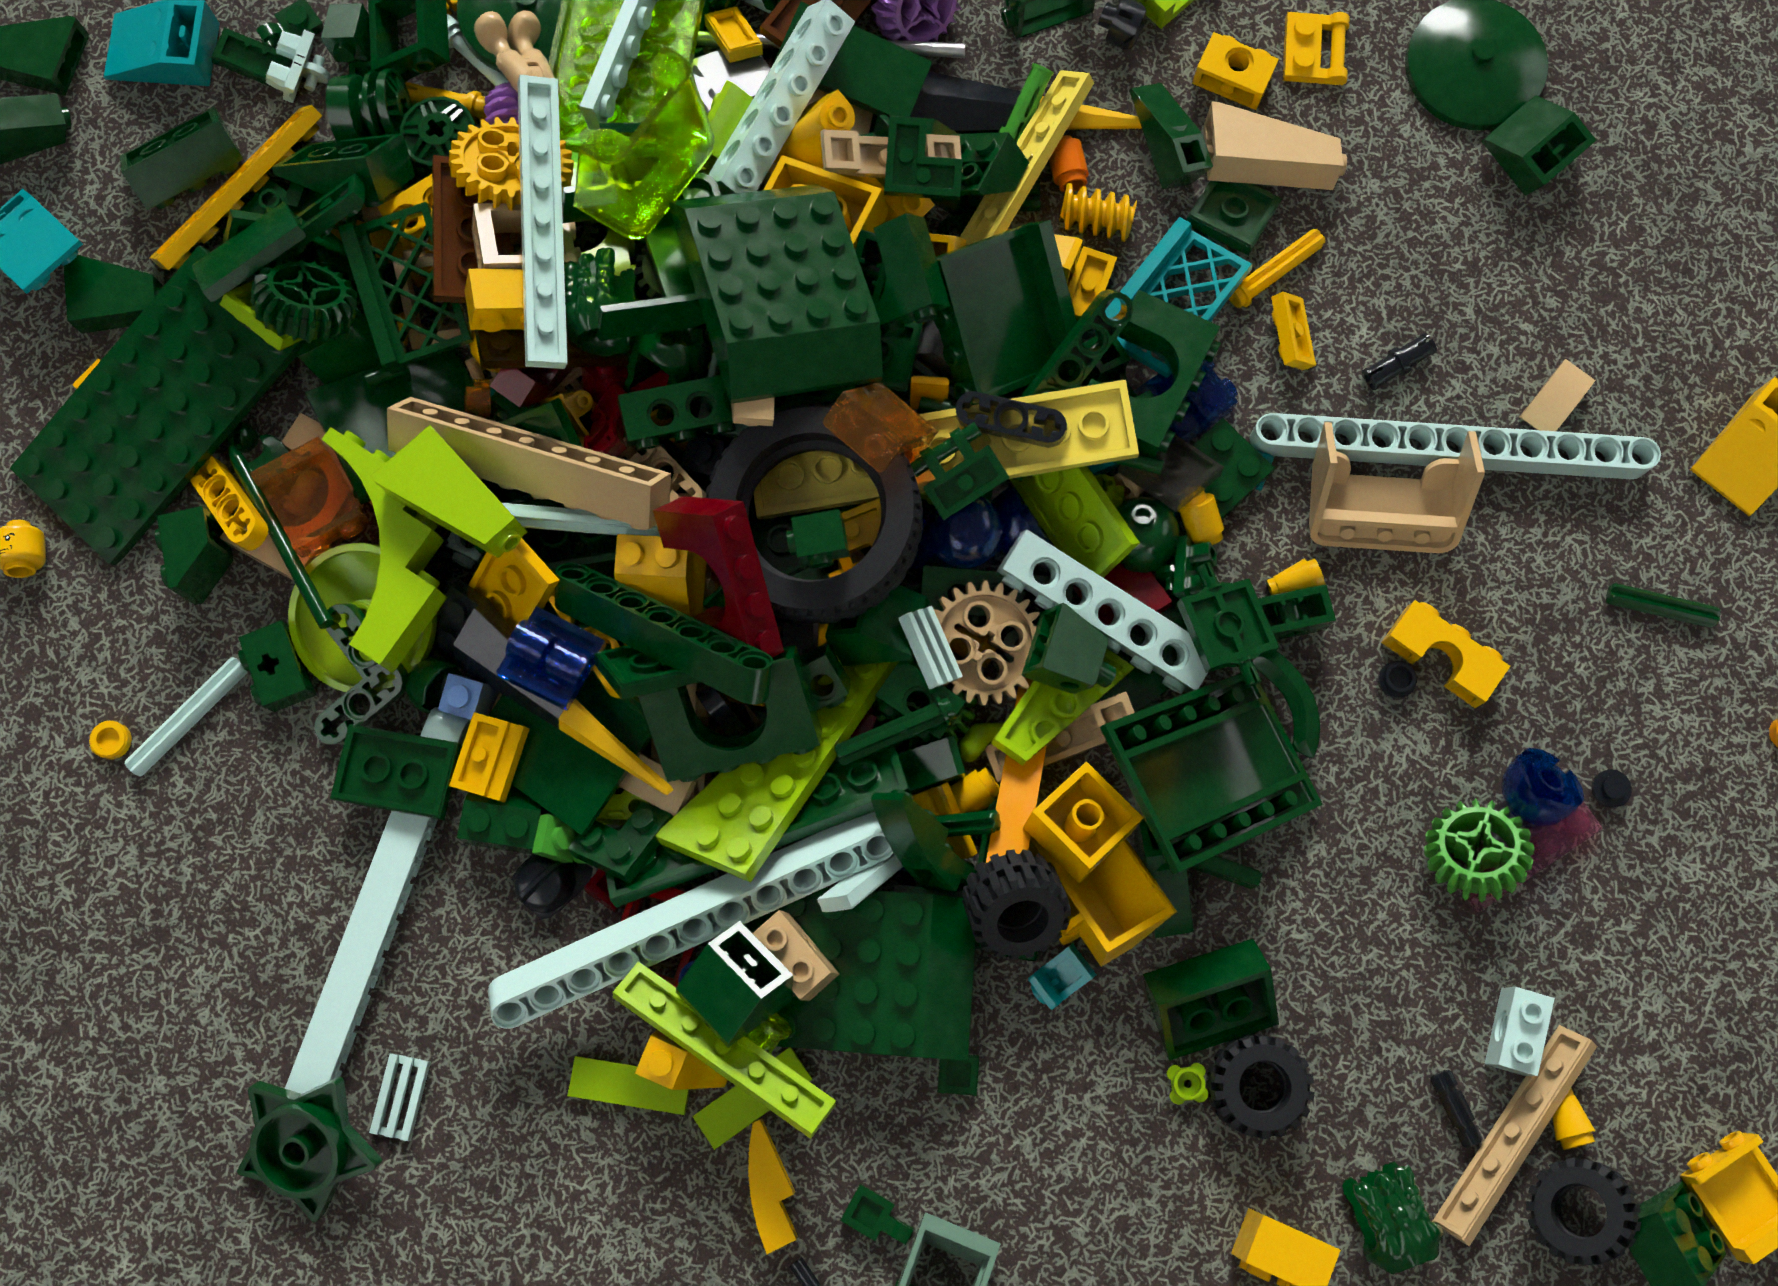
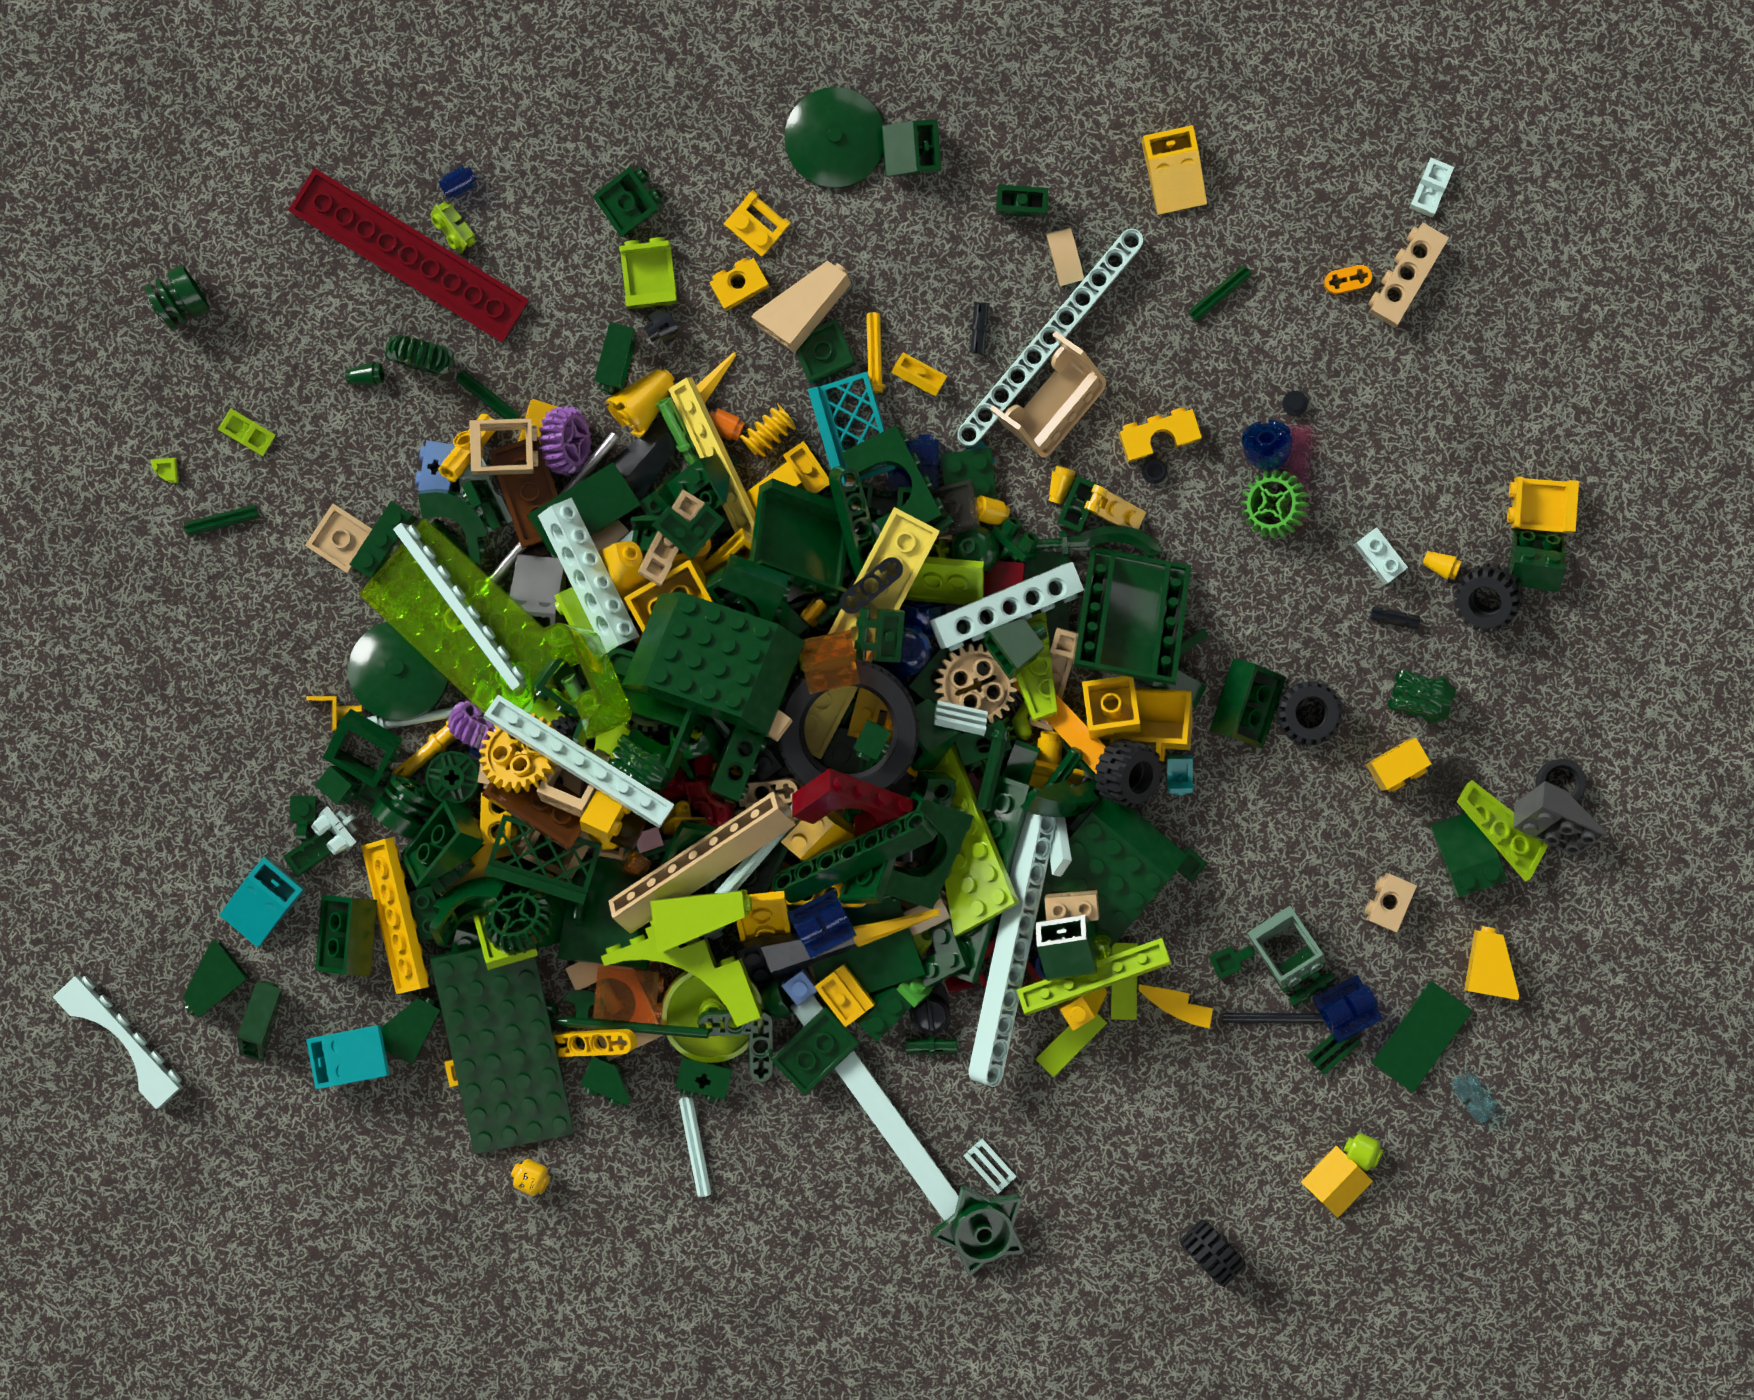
camera: 50 degrees left, 10 degrees up
(110, 740) = (678, 1197): yellow tile -> none
(248, 251) = (466, 934): dark green tile -> none
(324, 213) = (471, 883): dark green plate -> none
(503, 914) = (931, 1046): none -> dark green pin
(513, 46) = (454, 701): tan piece -> none
(733, 34) = (508, 562): yellow tile -> none
(1016, 45) = (638, 401): none -> yellow cone
(1171, 137) = (752, 355): dark green slope -> none
(1197, 1089) = (1288, 746): lime plate -> none
(1227, 625) = (1062, 548): dark green plate -> none
(1320, 656) = (1114, 508): none -> yellow plate
(1514, 1135) = (1428, 599): tan tile -> none
(1581, 301) = (1021, 201): none -> dark green brick

